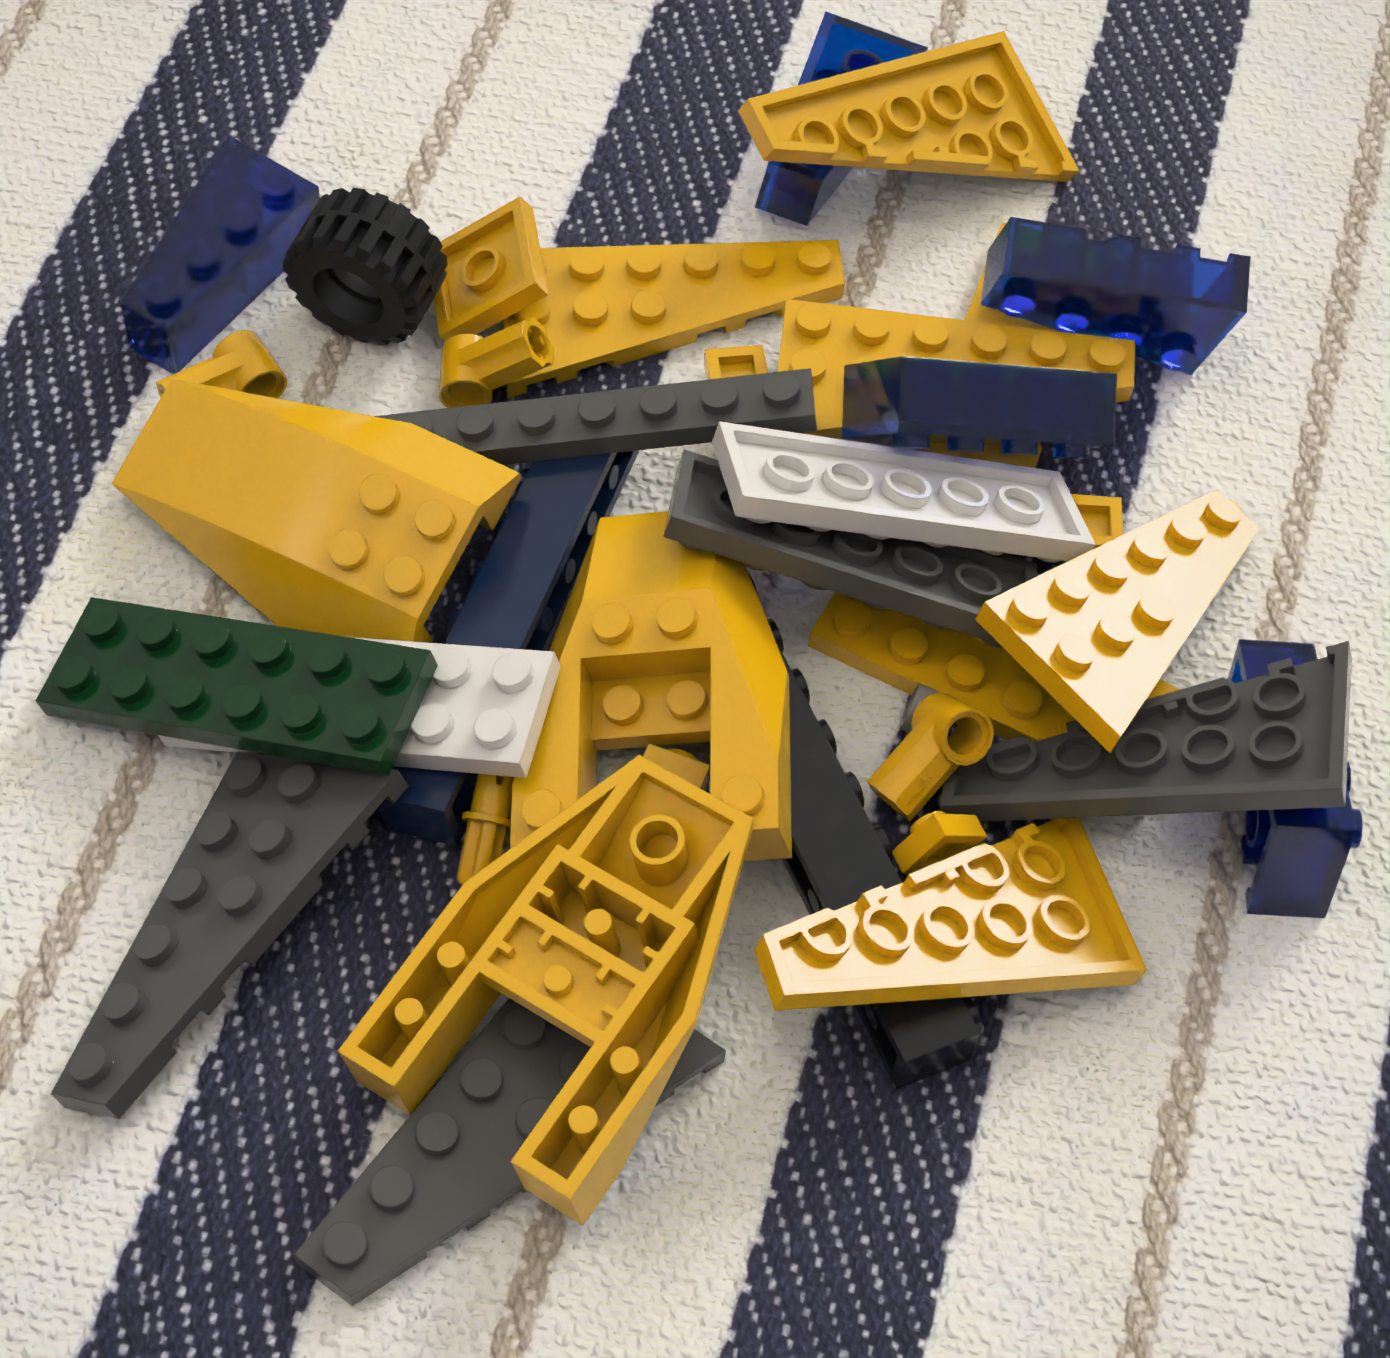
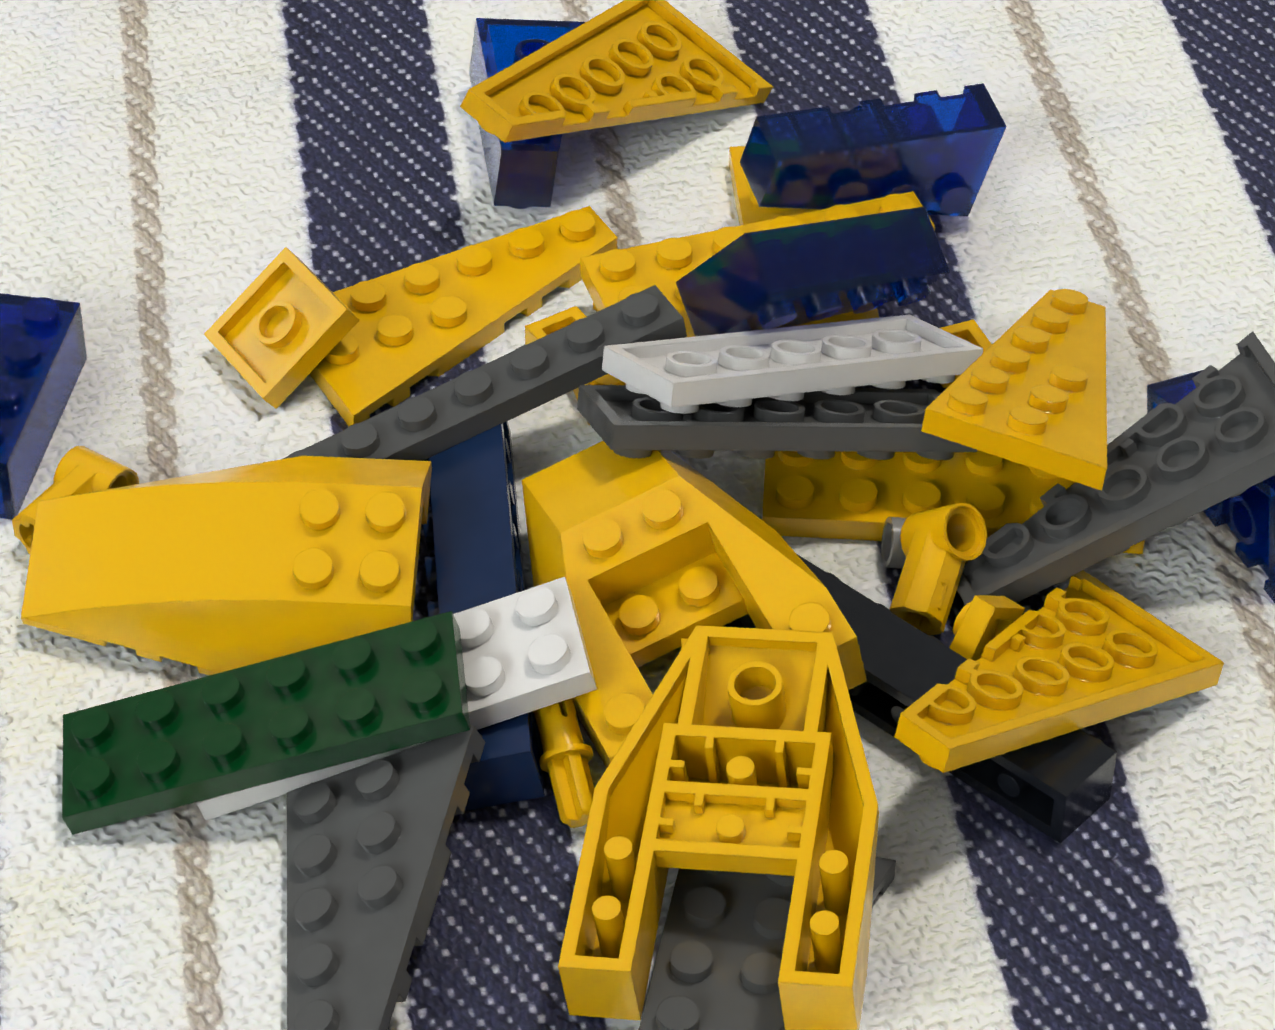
camera: 20 degrees left, 15 degrees down
(365, 266) = (169, 315): black tyre -> none
(479, 365) = (322, 406): yellow piece -> none

